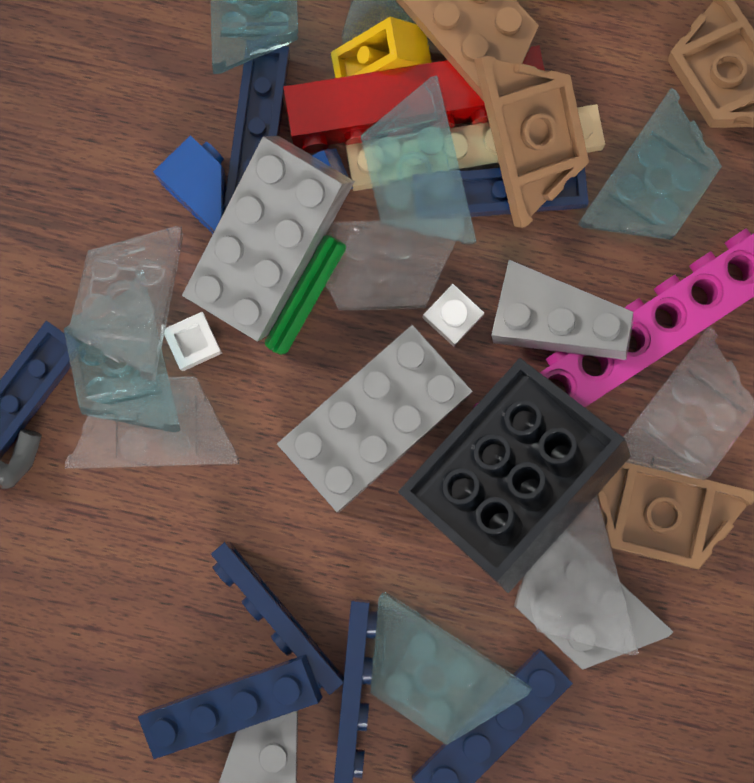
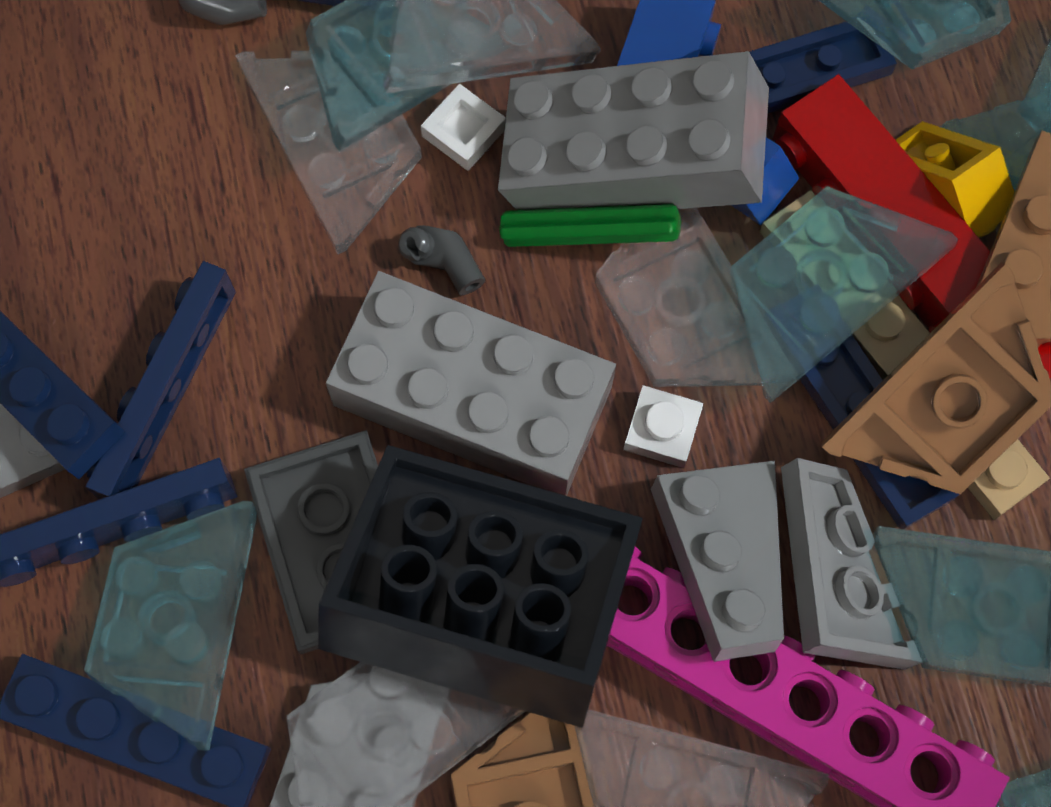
camera: 65 degrees right, 10 degrees down
(271, 394) = (442, 251): none -> dark grey arm
(413, 558) = (306, 516): none -> dark grey tile
(600, 261) = (836, 585): none -> light grey wing

